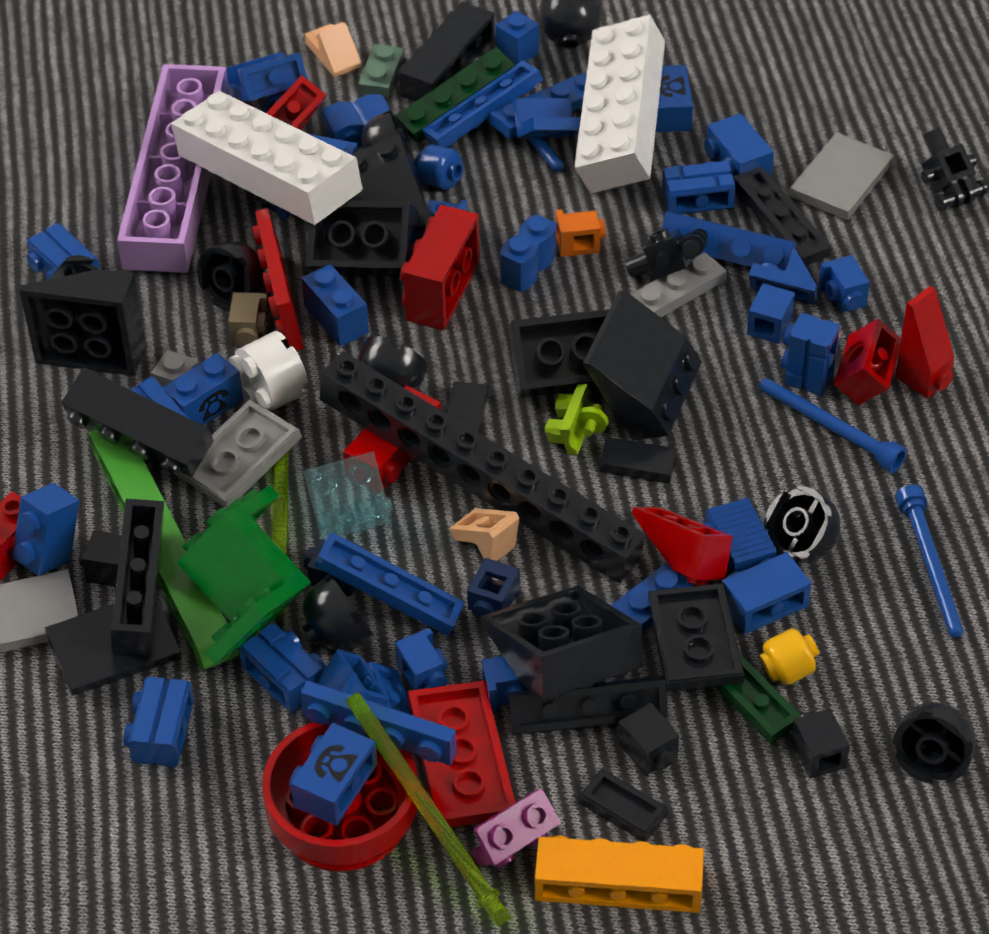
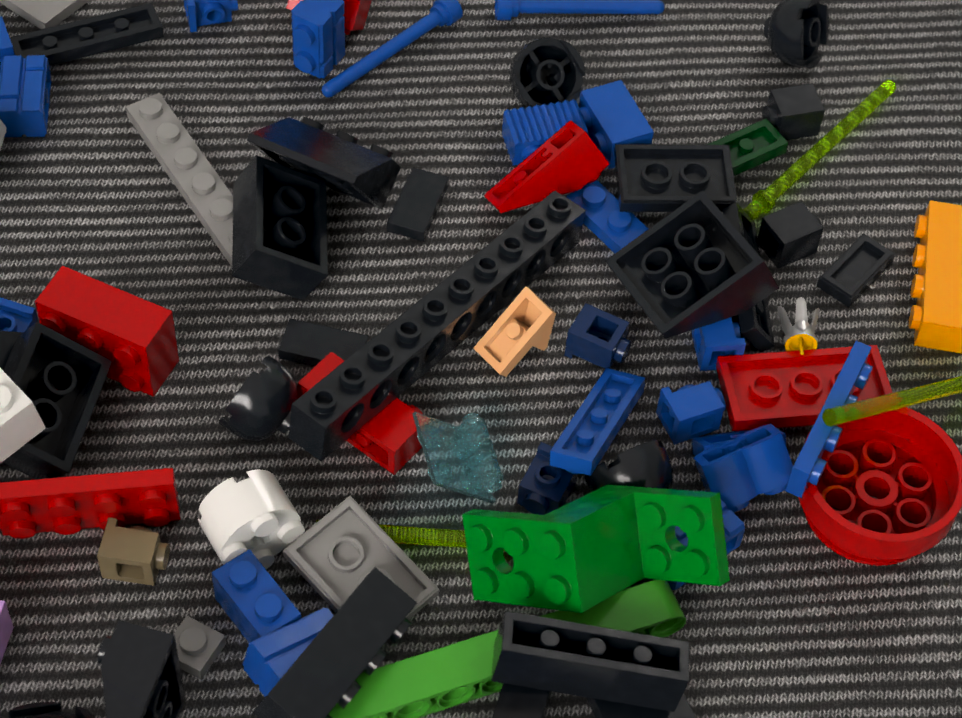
camera: 90 degrees left, 5 degrees up
(159, 722) = (765, 667): blue brick -> none
(229, 269) = (55, 561): black cylinder -> none
(333, 773) = (896, 461): blue brick -> none
(335, 305) = (133, 446): blue brick -> none
(514, 829) = (909, 346): bracket -> none
(527, 746) = (802, 334): none -> flat silver piece
(528, 253) = (91, 252): blue brick -> none
(579, 232) = (64, 210): orange brick -> none
(579, 419) = (361, 237): lime hips -> none
(667, 252) = (135, 124): black piece -> none
(696, 723) = (764, 200): none -> clear neon green bar
(734, 243) = (119, 85): blue plate -> none
(770, 313) = (235, 64): blue brick -> none
(789, 656) = (694, 117): yellow head -> none
(794, 279) = (191, 39): blue slope -> none

